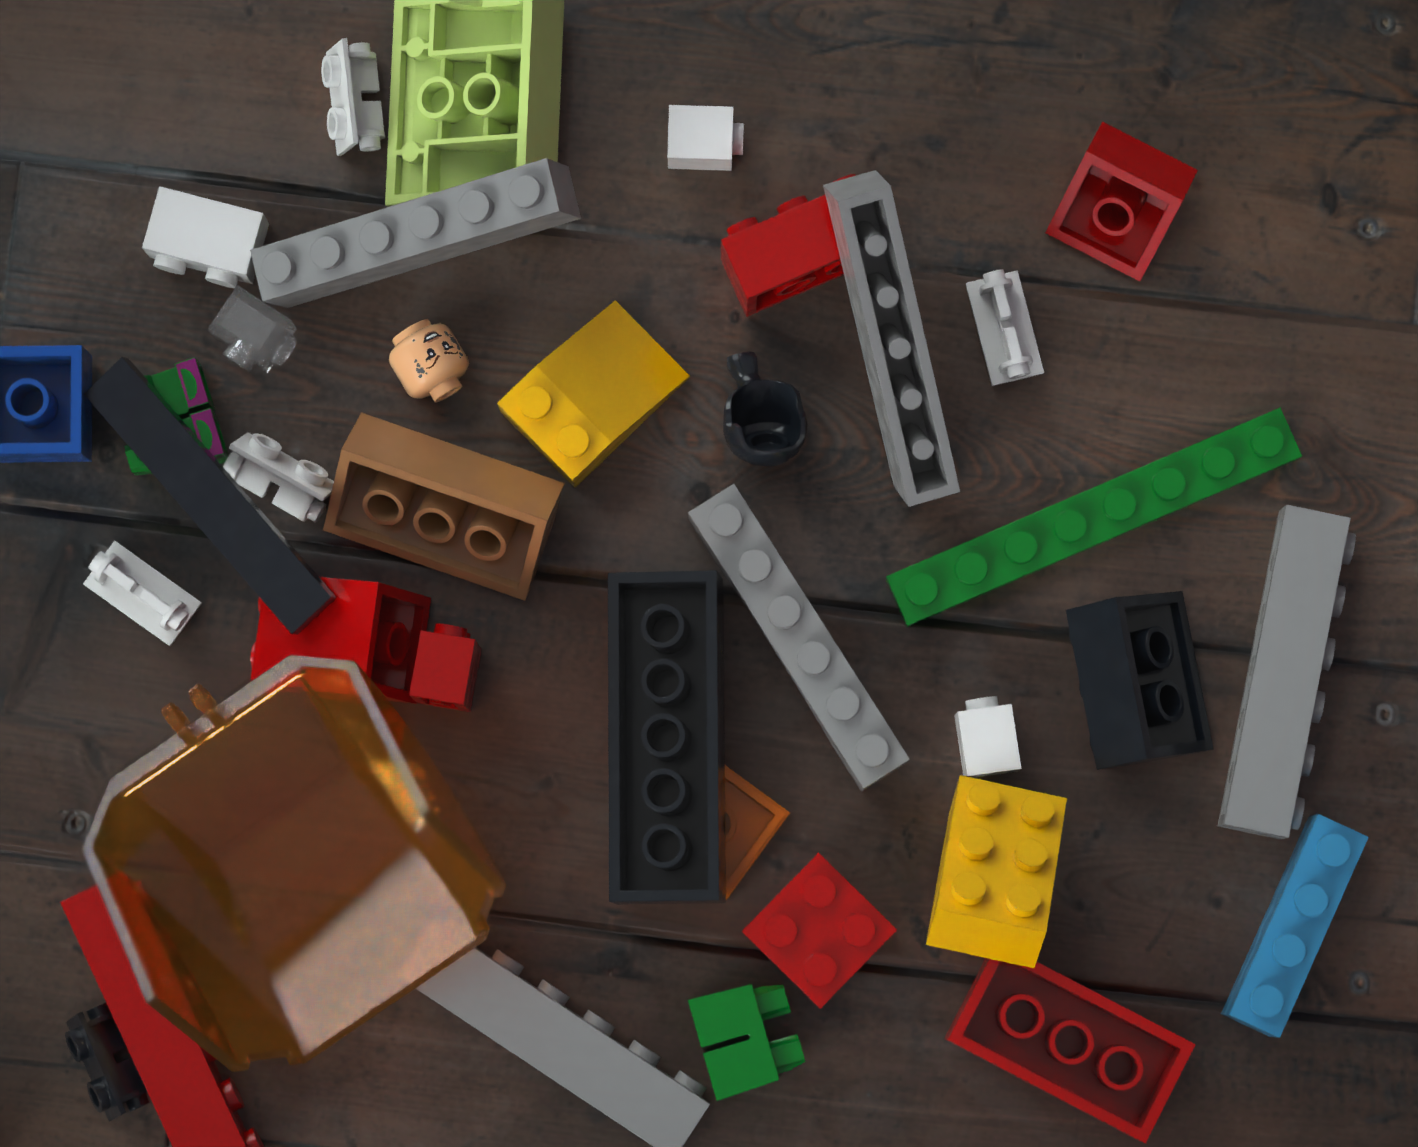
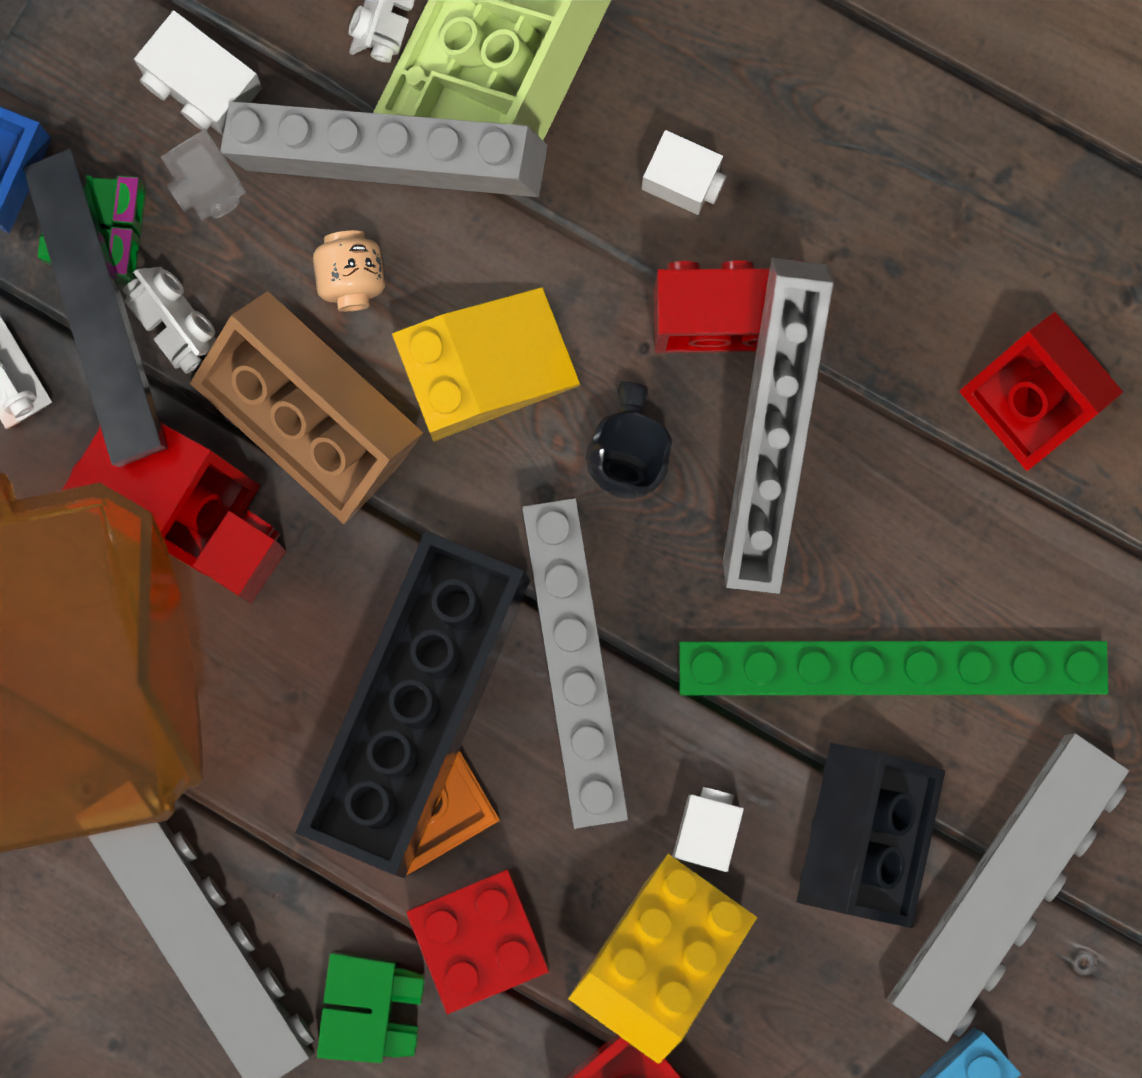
camera: 20 degrees right, 0 degrees up
(1004, 327) = (885, 460): white hinge -> none

